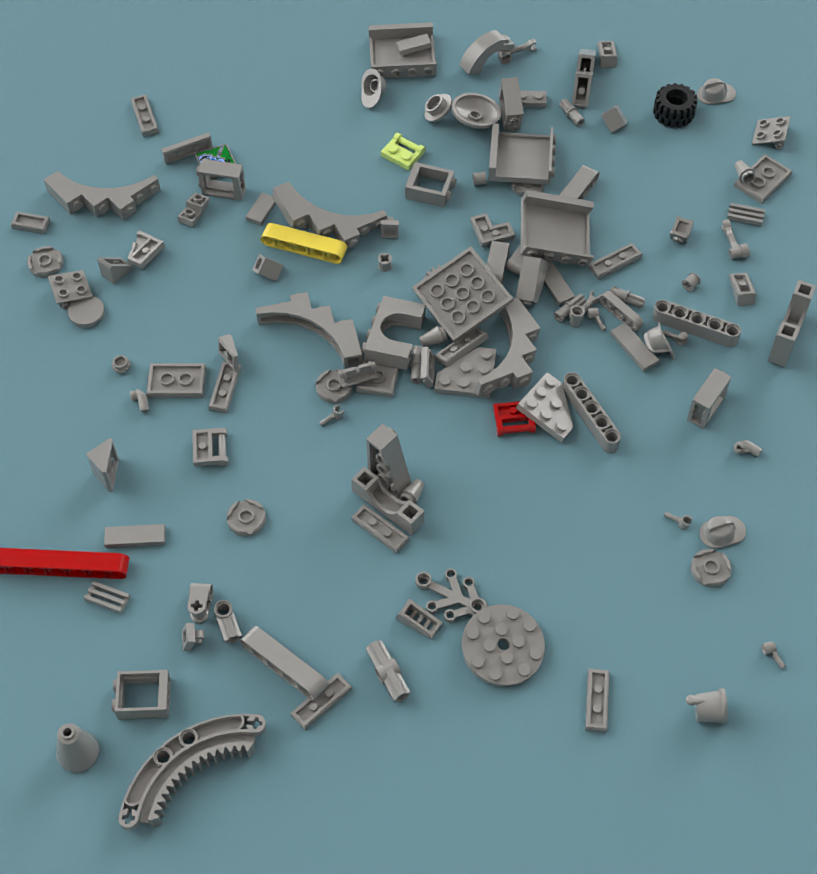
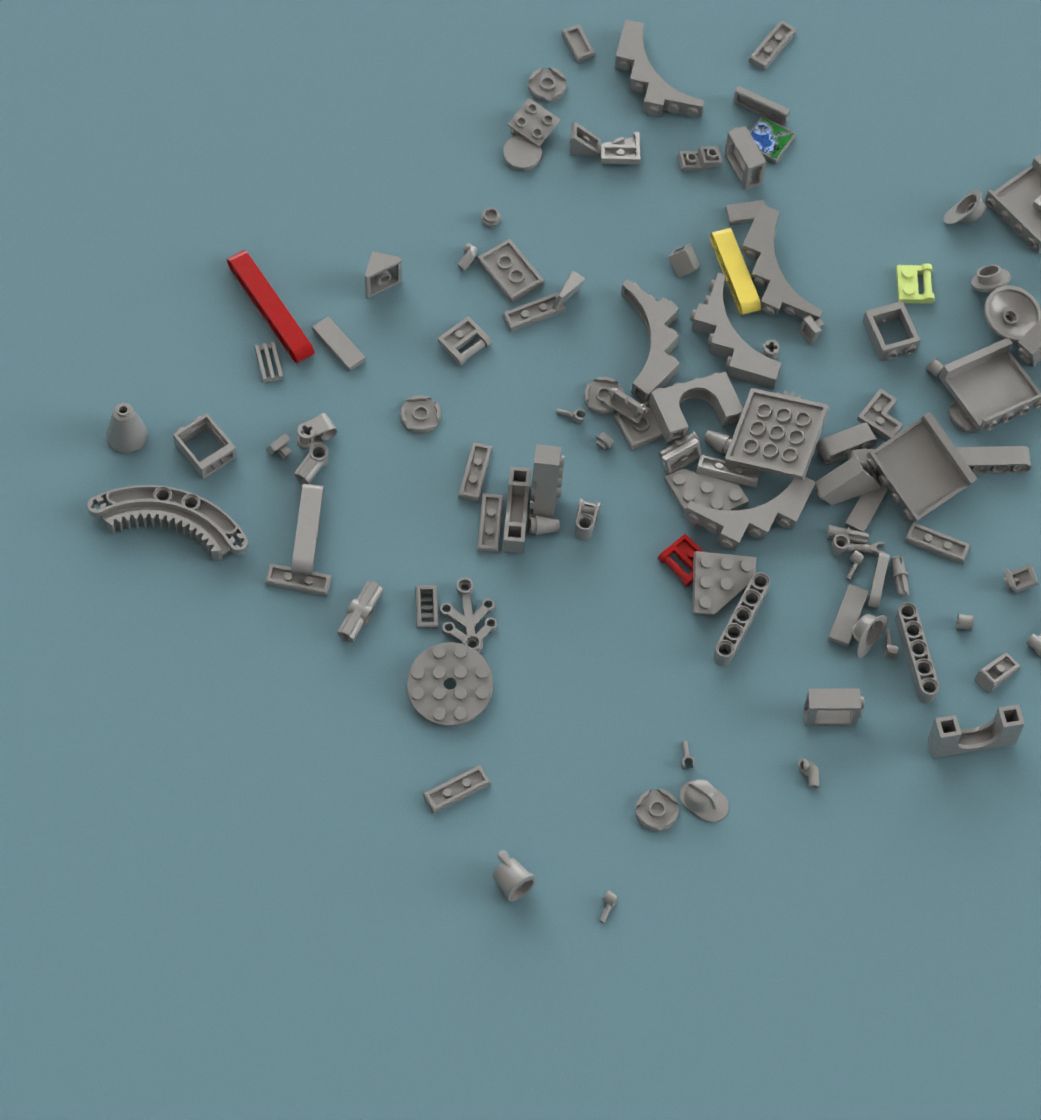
camera: 50 degrees right, 5 degrees up
(328, 511) = (475, 472): none -> light grey tile
(354, 283) = (742, 360): none -> light grey arch
(373, 408) = (604, 441): none -> light grey plate
(426, 458) = (586, 516): none -> light grey piece

